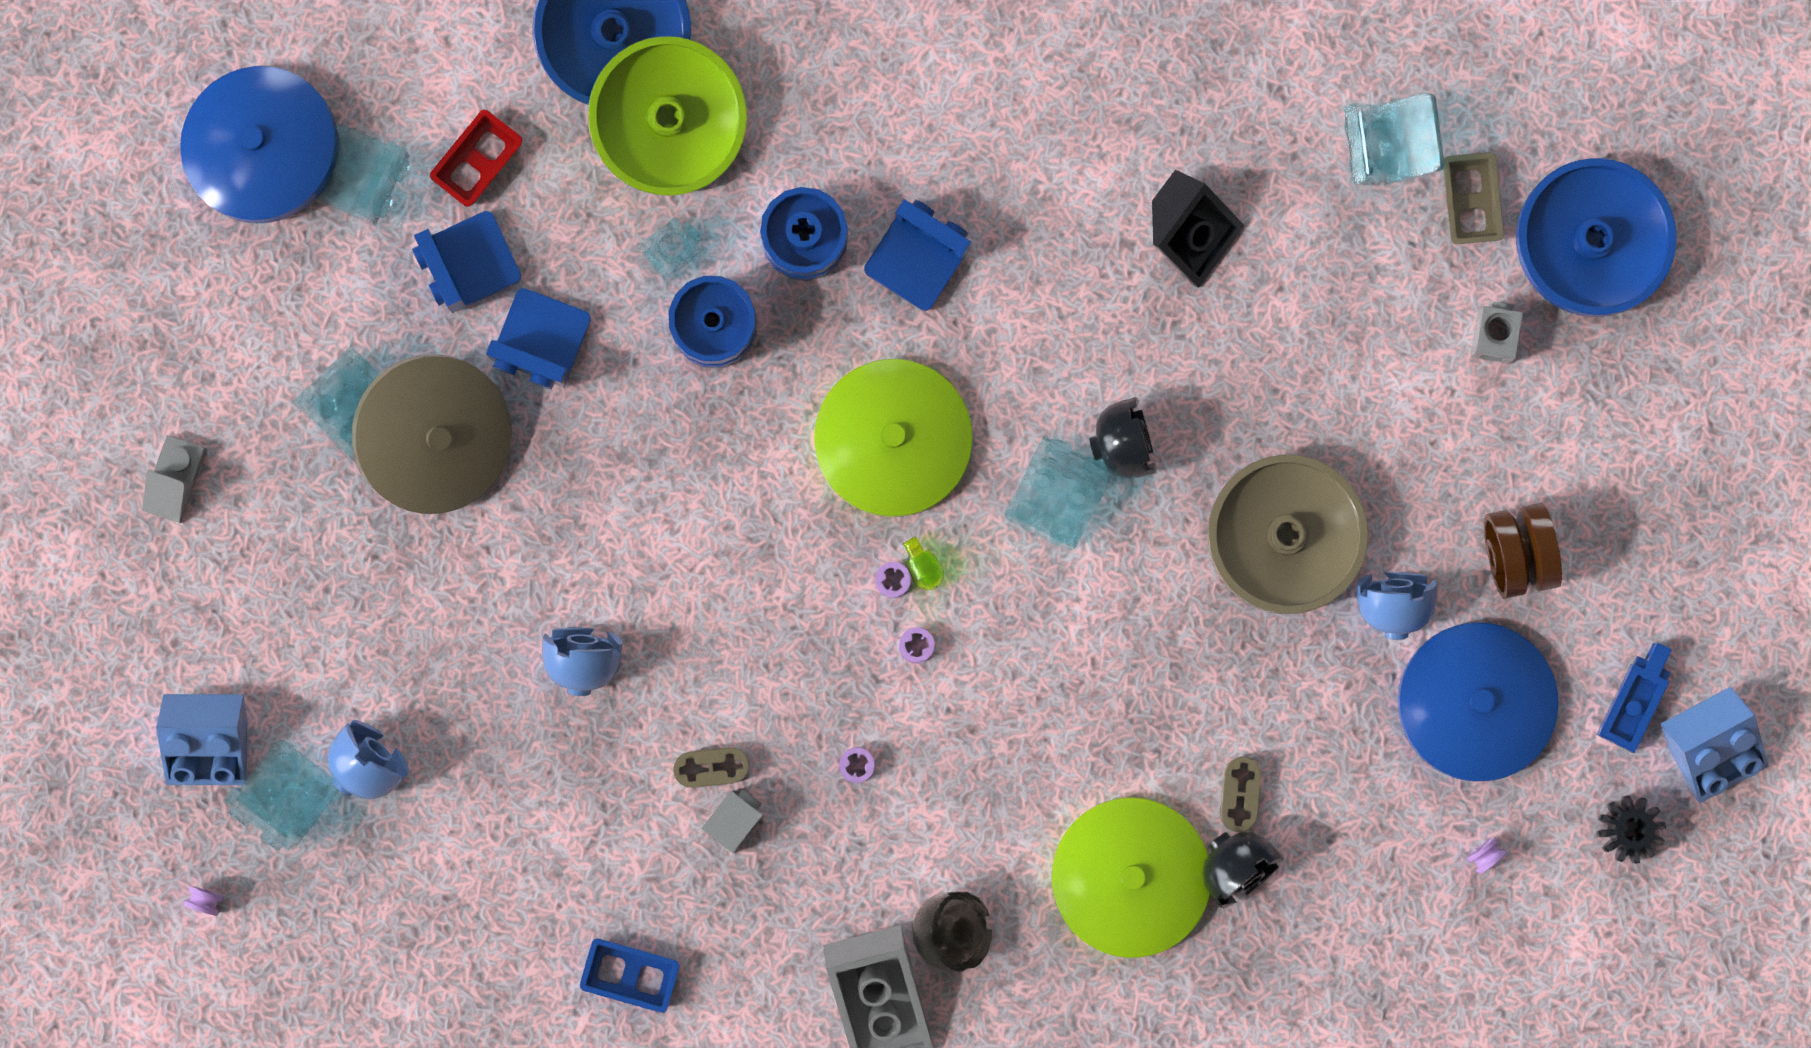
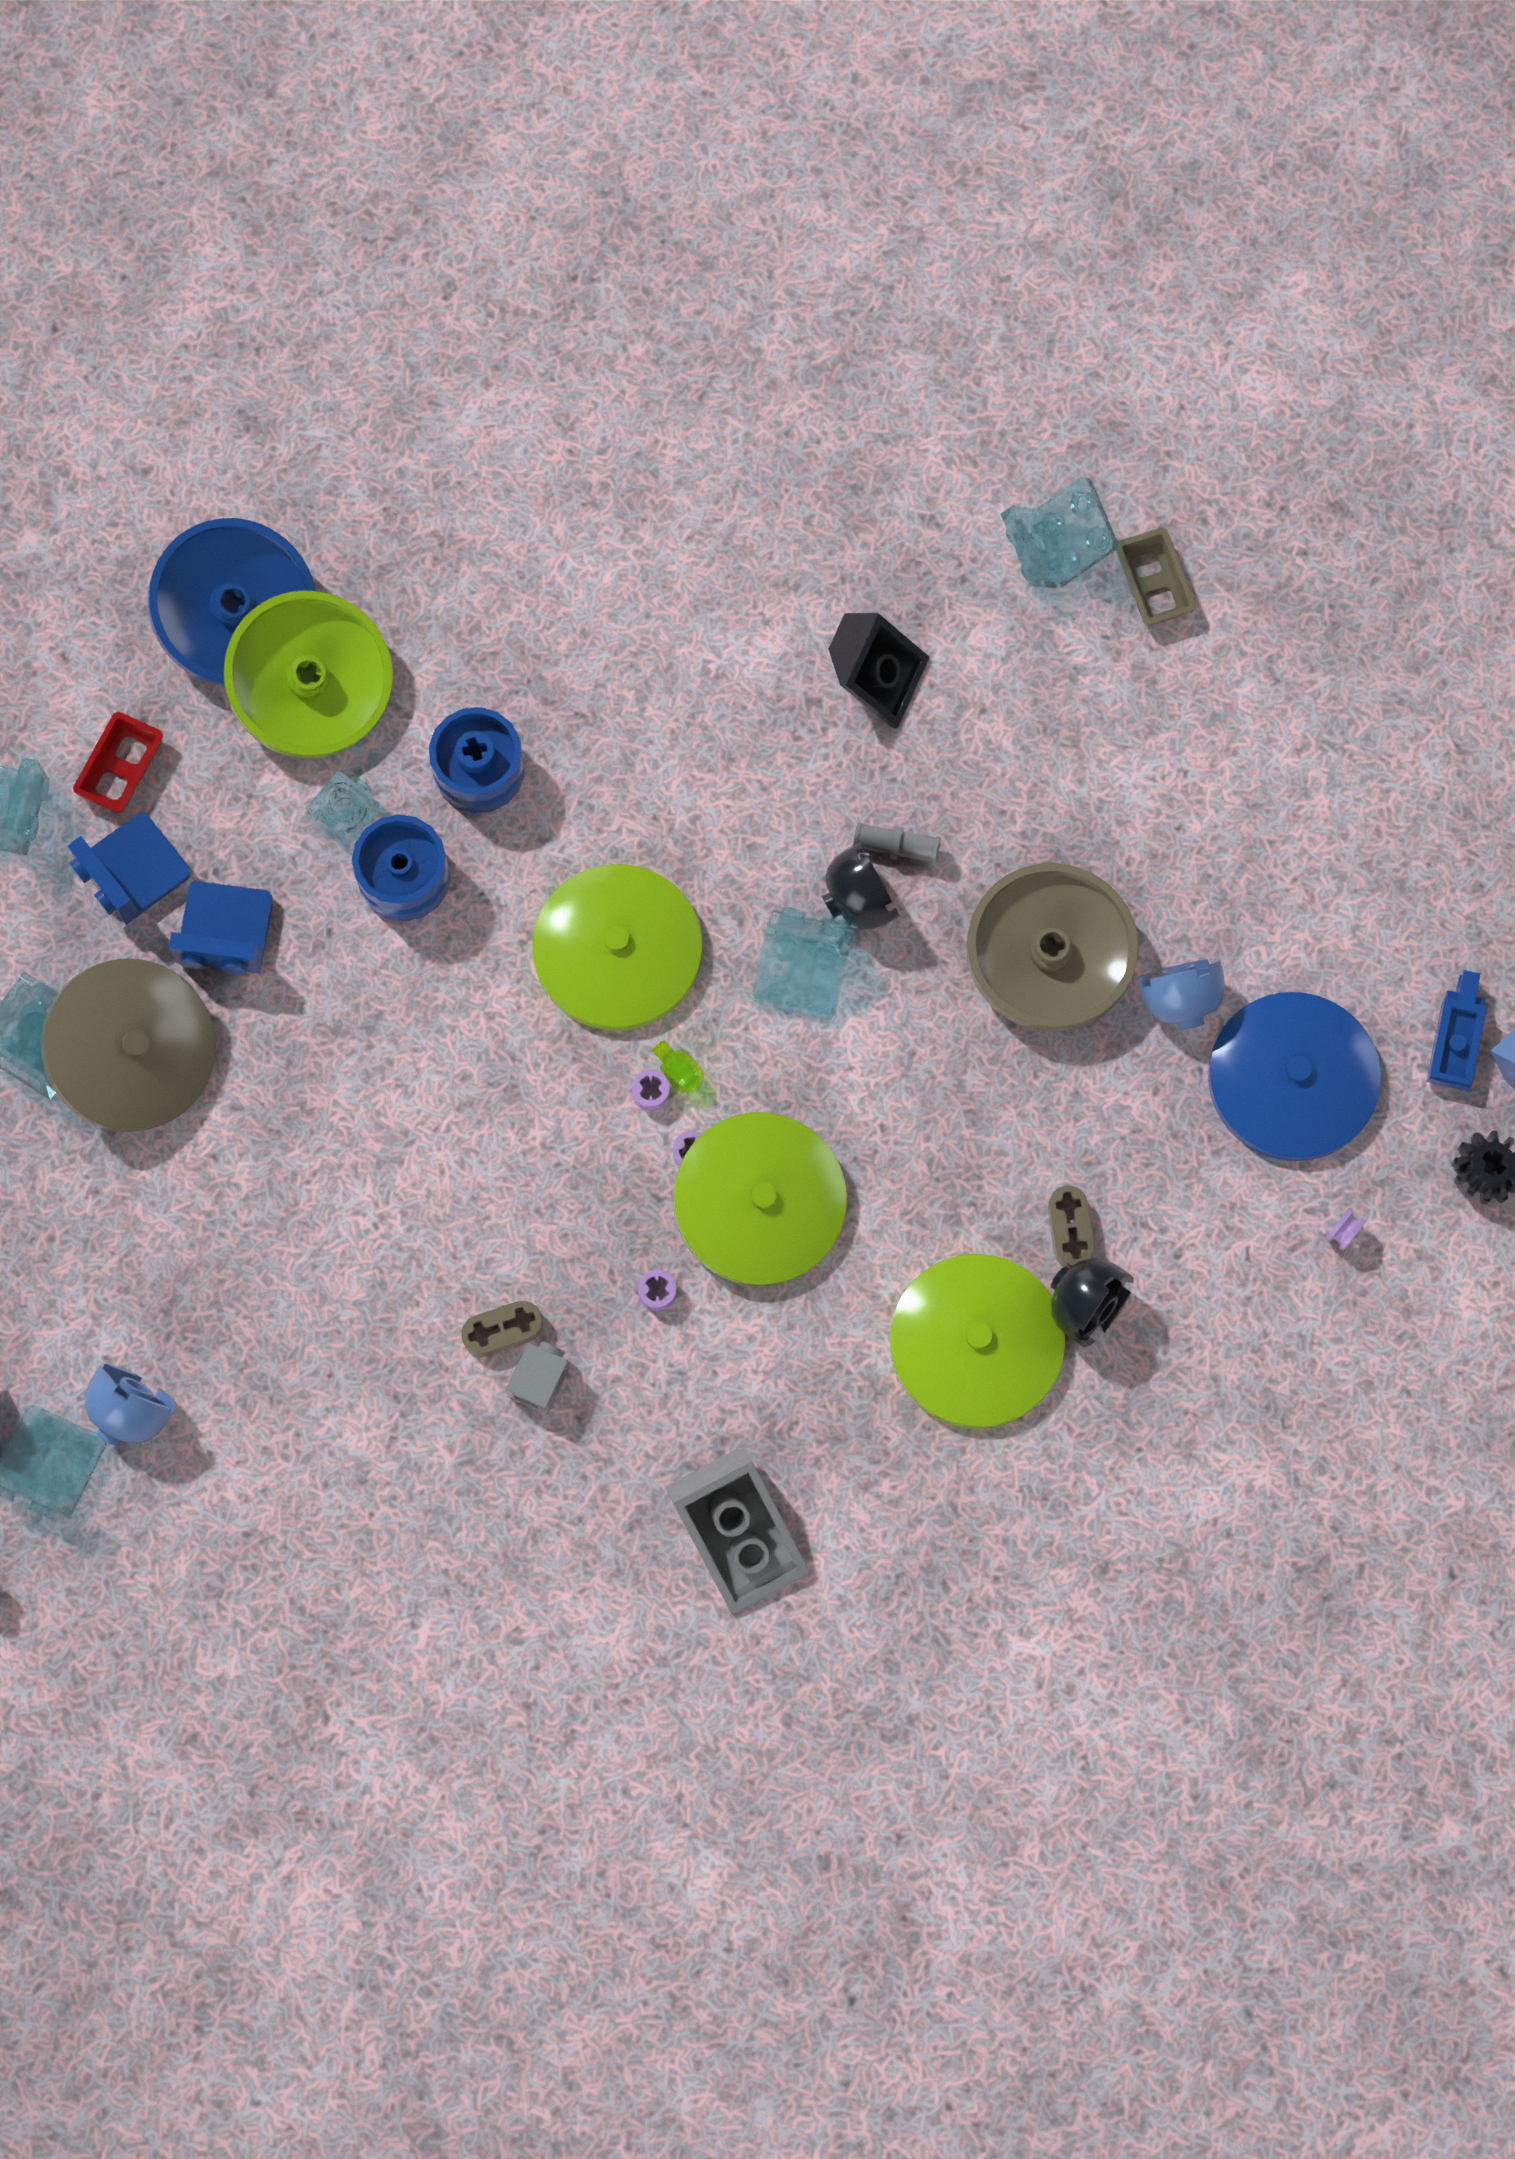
camera: 10 degrees left, 10 degrees down
(581, 660) = (337, 1245): medium blue cylinder -> none
(626, 989) = (465, 1552): blue piece -> none
(918, 255) = (600, 755): blue bracket -> none
(952, 931) = (799, 1436): clear smoke cylinder -> none
(967, 704) = (759, 1199): none -> lime dish
(1170, 399) = (897, 842): none -> light grey pin
(1486, 347) = (1212, 718): light grey brick -> none
(1522, 550) = (1300, 906): reddish brown wheel -> none
(1596, 237) = (1290, 584): blue dish -> none

